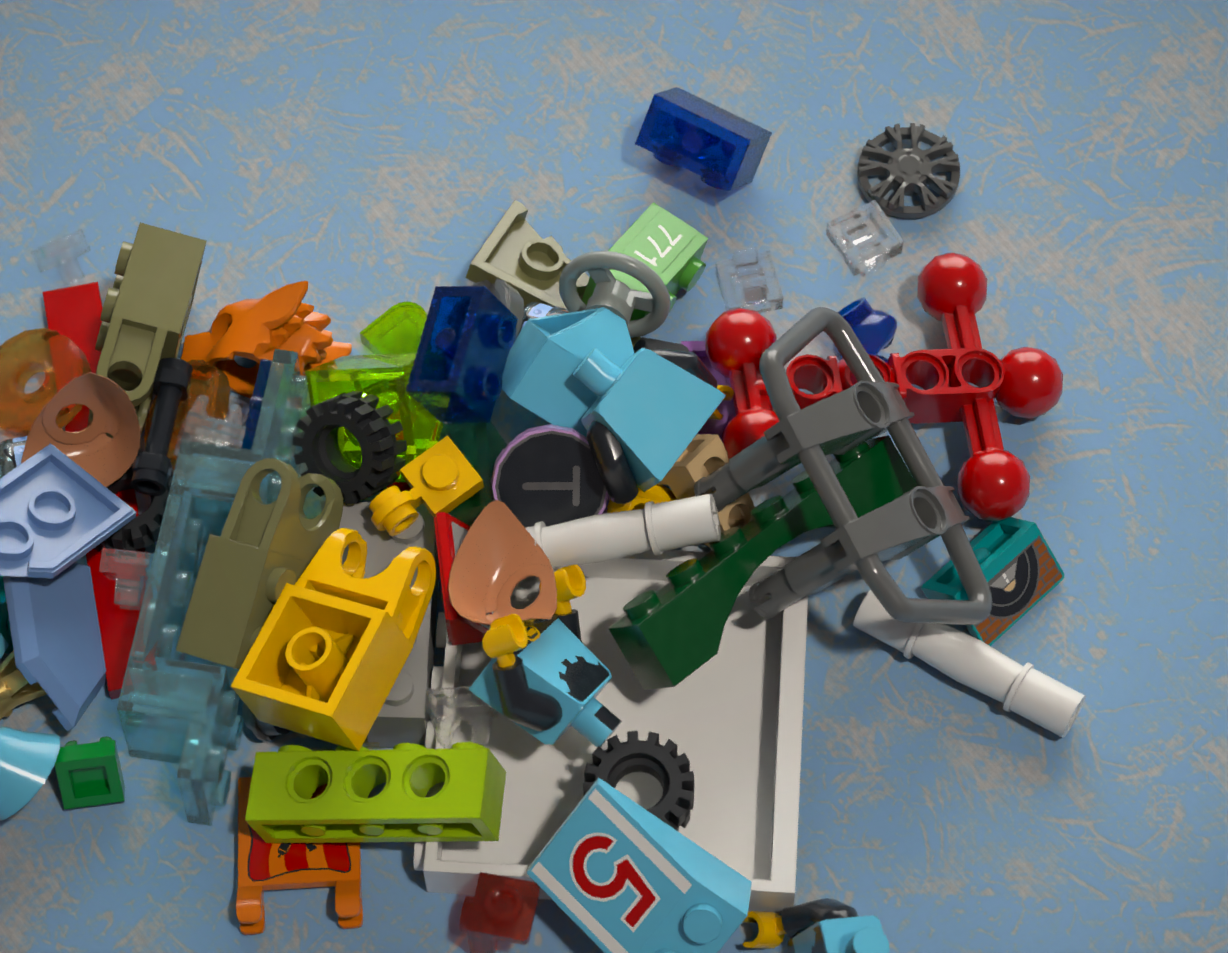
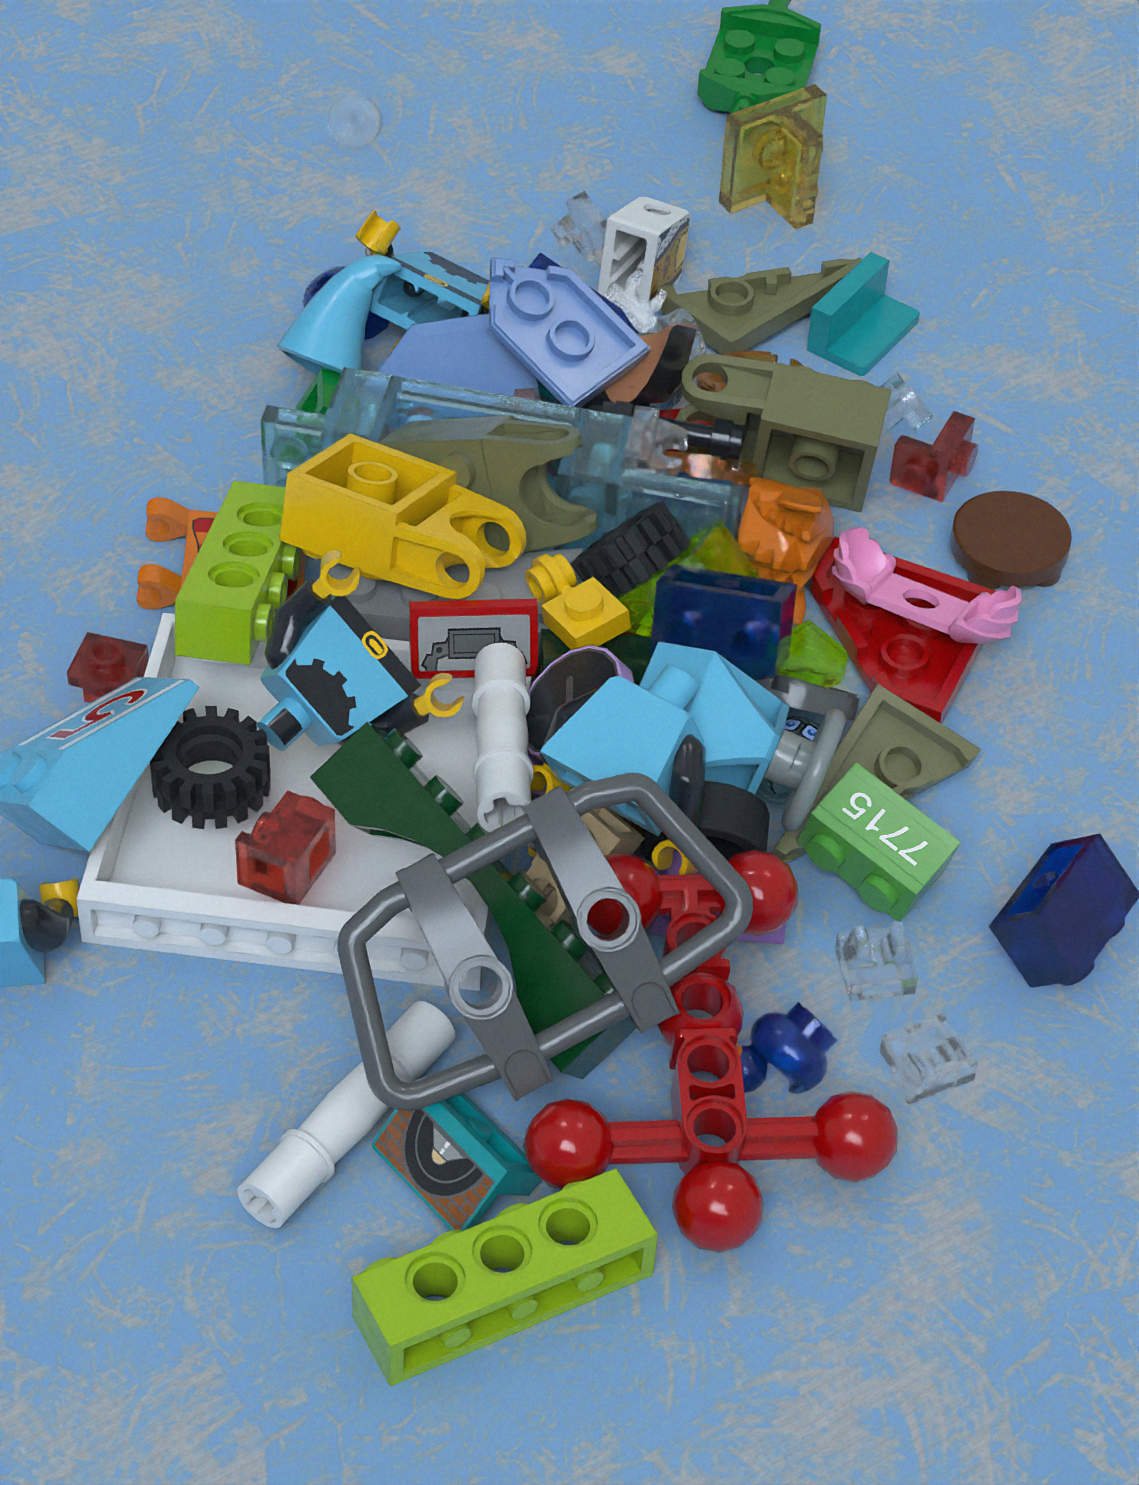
camera: 90 degrees right, 15 degrees down
(127, 208) = (935, 467): none -> clear red bracket
(244, 173) = (1010, 540): none -> reddish brown tile
(372, 252) = (896, 651): none -> red plate
(381, 191) = (870, 579): none -> bright pink piece
(492, 563) = (453, 632): nougat piece -> none
(732, 708) = (287, 848): none -> clear red brick
(909, 171) = (1046, 1138): dark grey wheel -> none
(1075, 457) = (485, 1306): none -> lime brick

